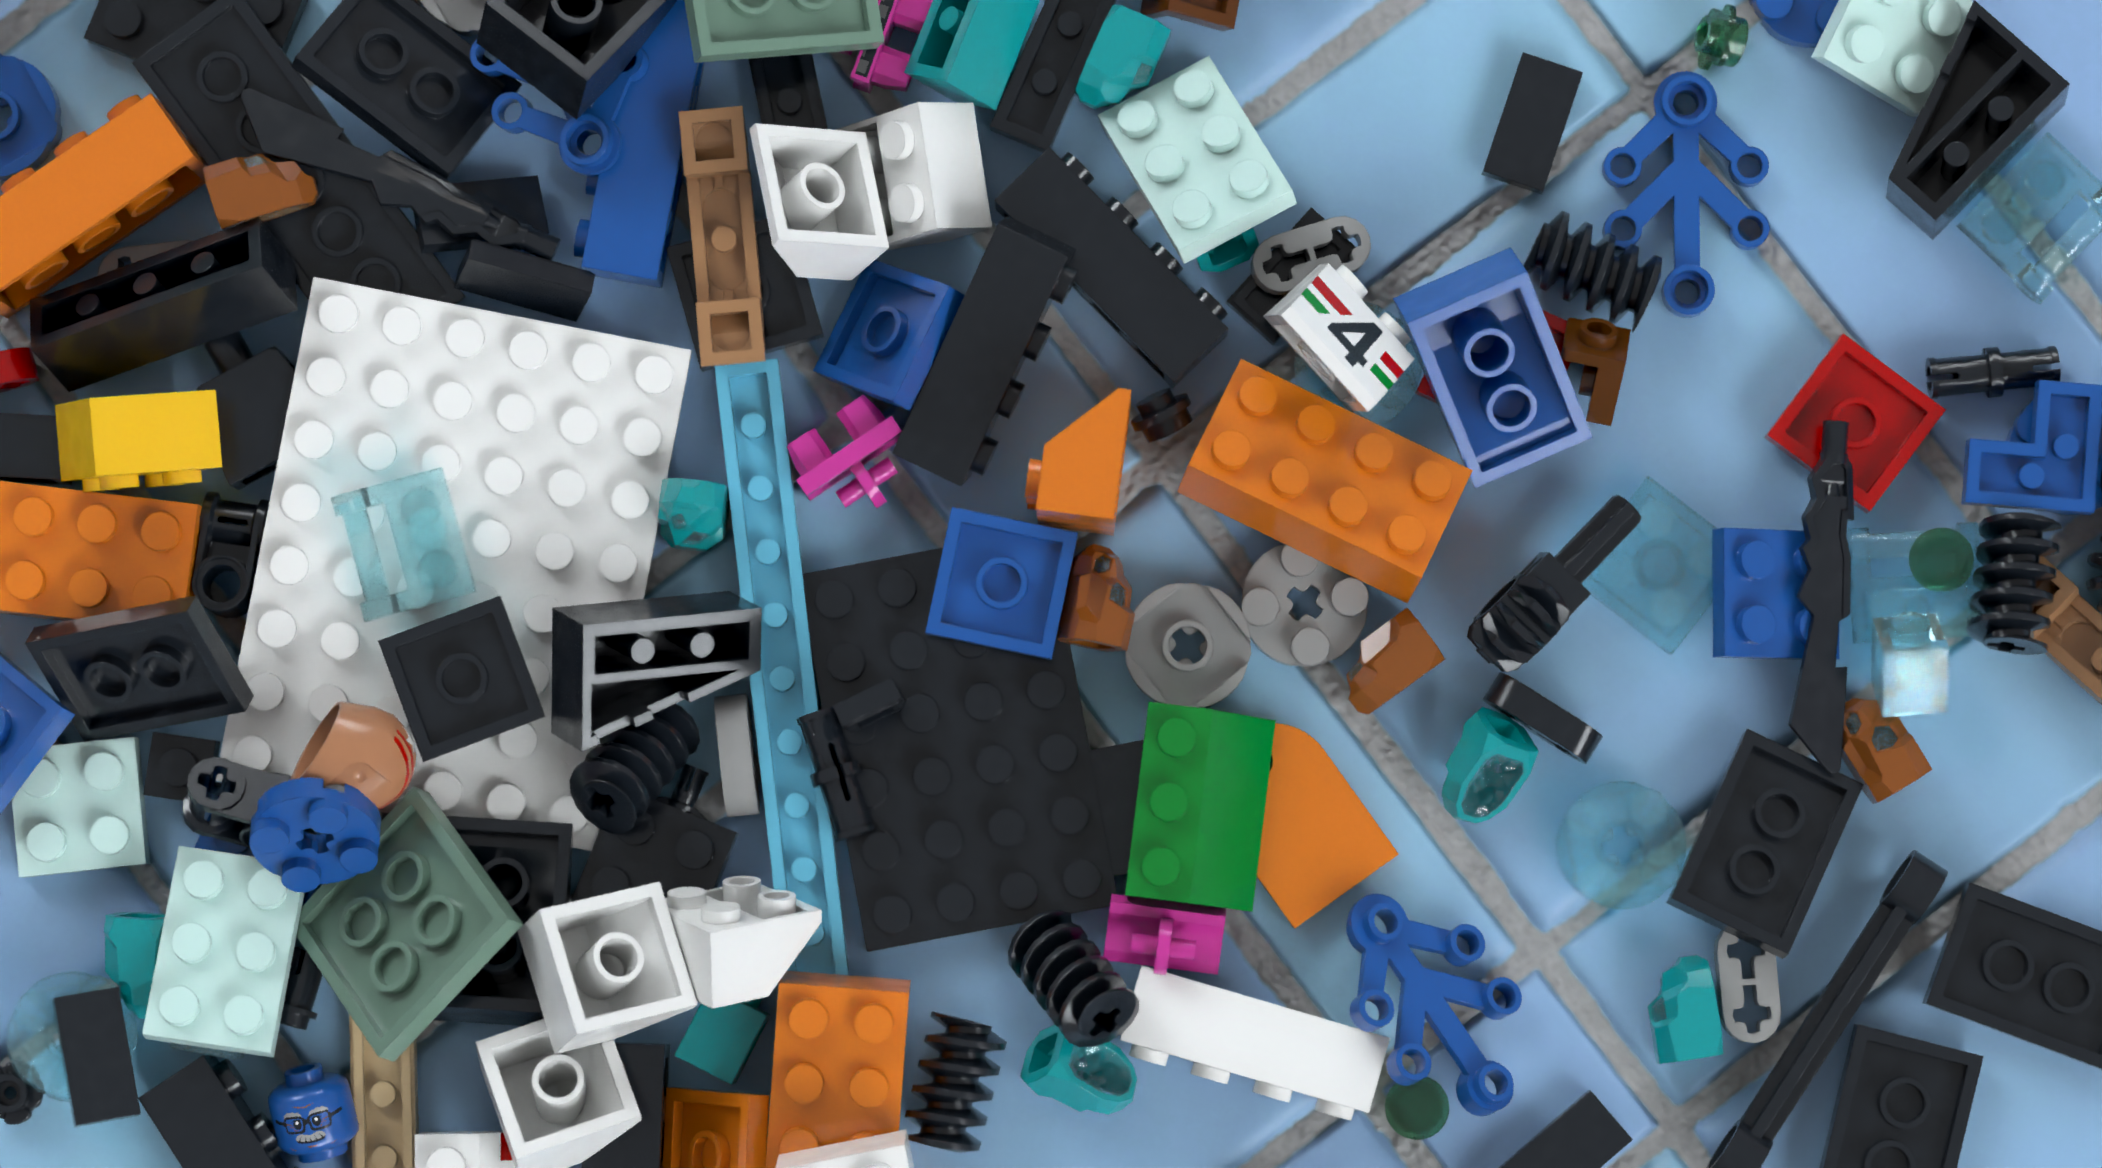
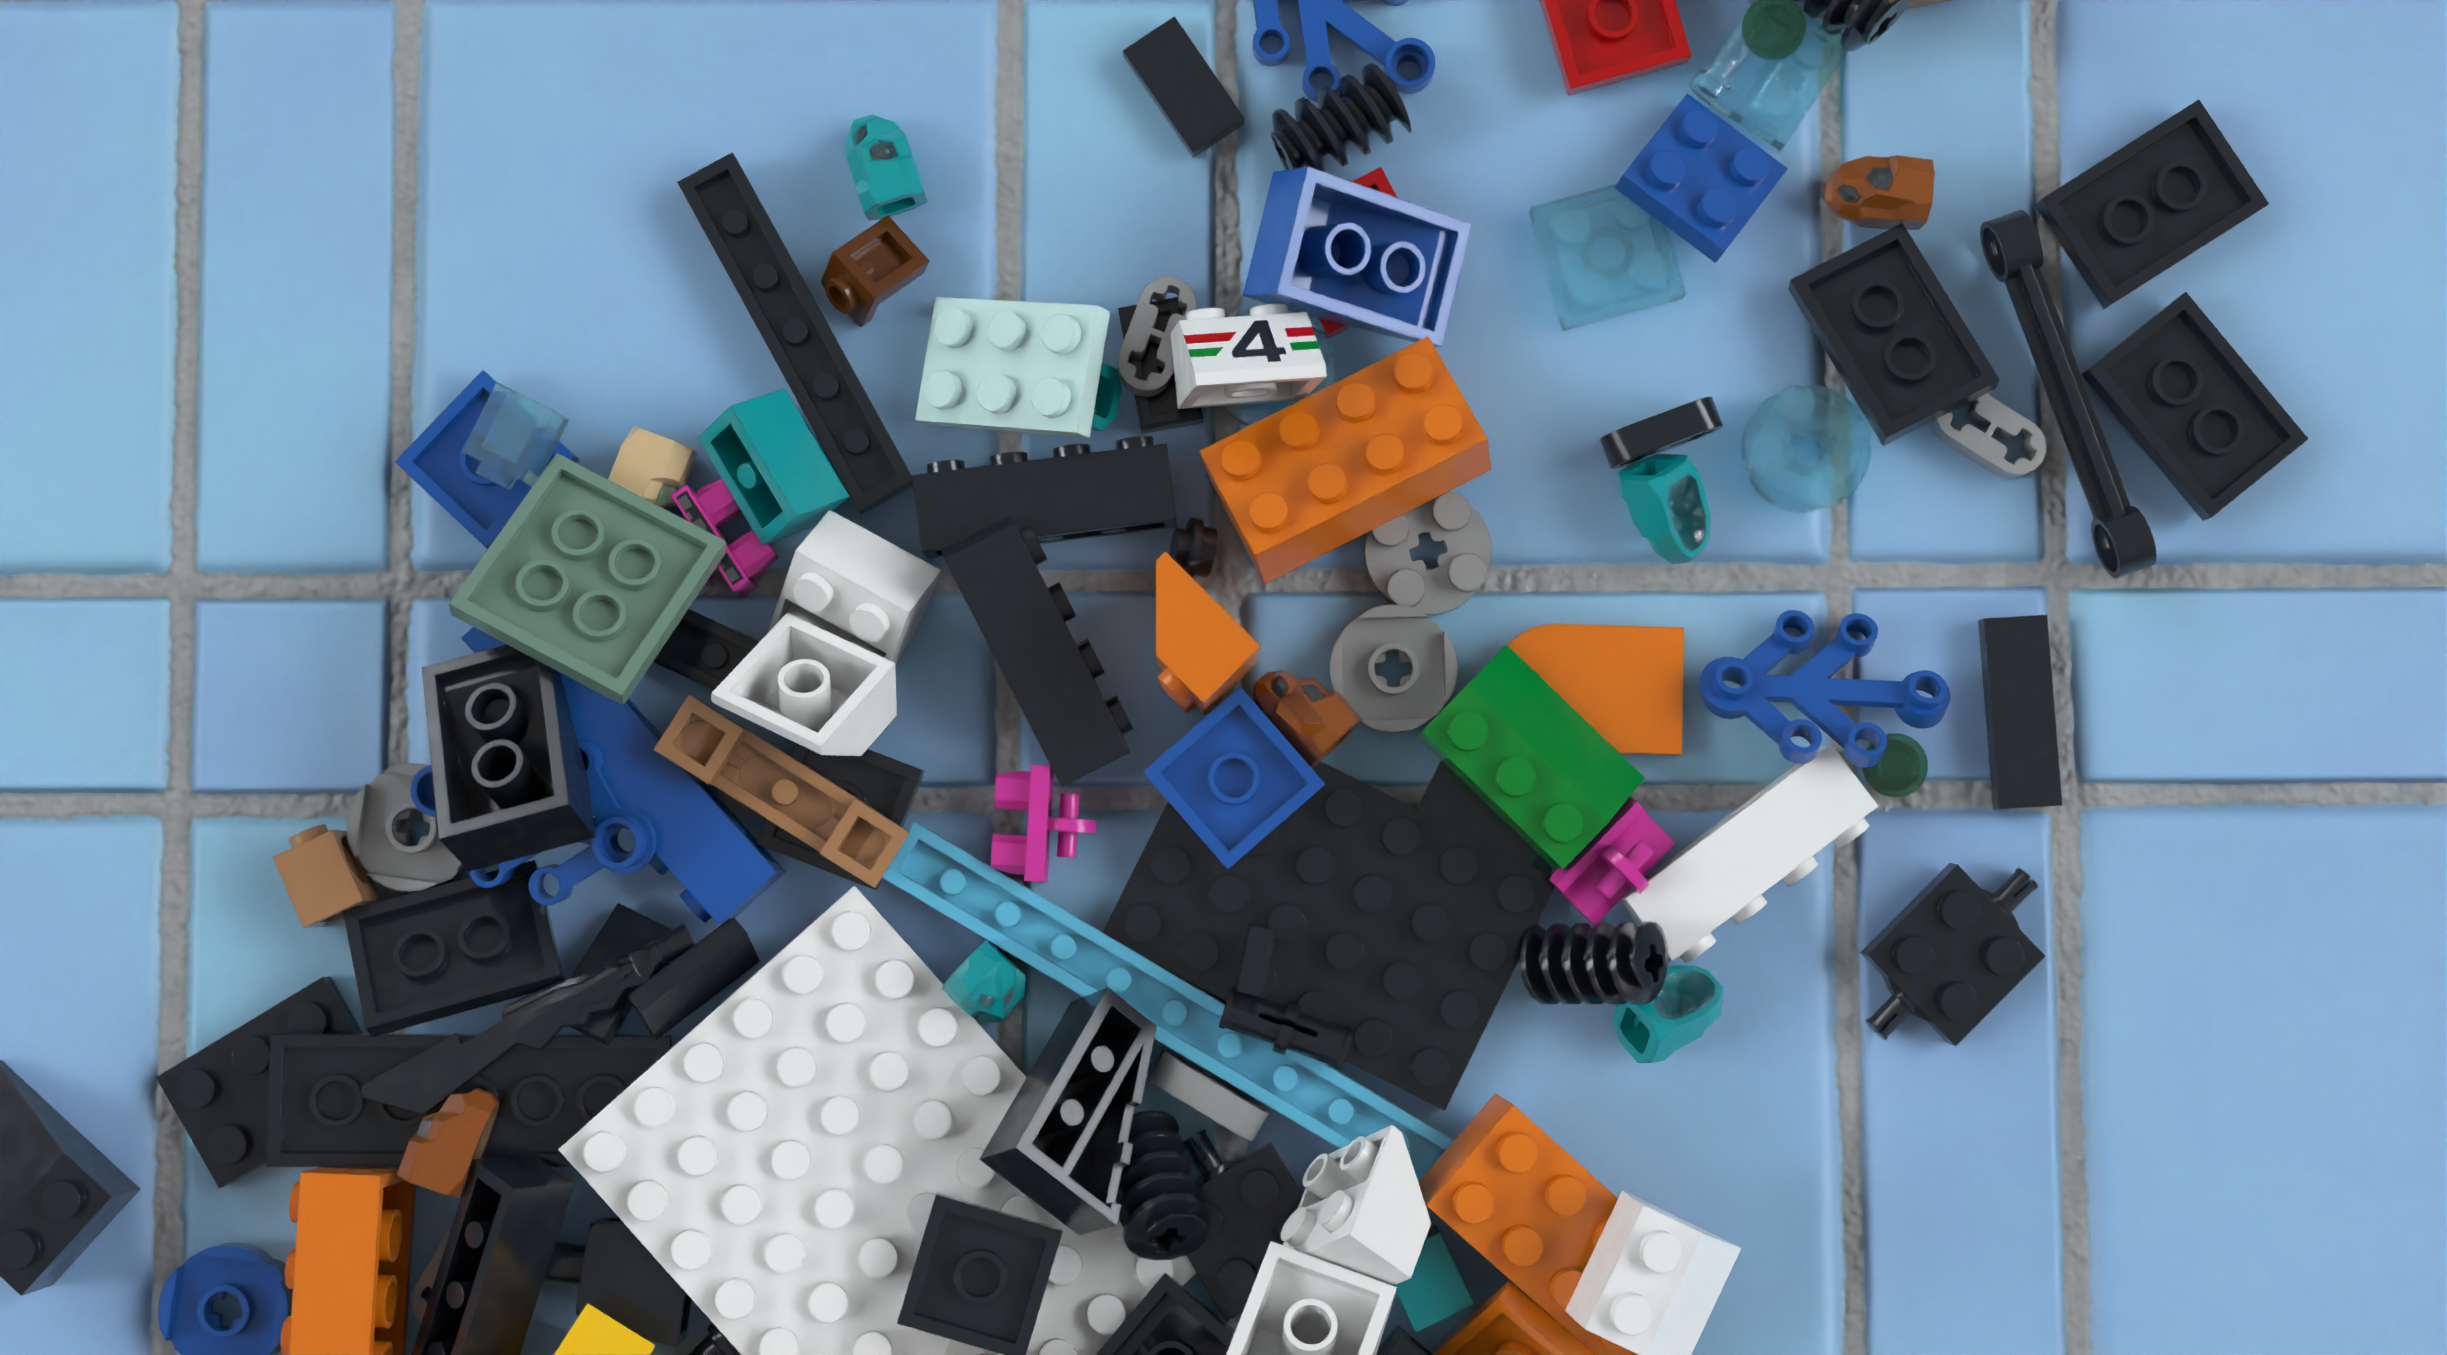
camera: 60 degrees left, 0 degrees up
(425, 540) = (844, 1221): clear light blue plate -> none
(889, 334) = (964, 716): blue plate -> none
(955, 1084) = (1607, 1120): black piece -> none
(1121, 57) = (884, 365): teal rock -> none
(1391, 662) = (1529, 517): dark orange rock -> none
(1548, 590) = (1566, 352): black gear -> none
(1604, 354) = (1420, 169): reddish brown bracket -> none
(1686, 1013) = (1981, 497): teal rock -> none
(1826, 595) = (1734, 138): black sword -> none
(1909, 664) = (1837, 115): clear light blue brick -> none

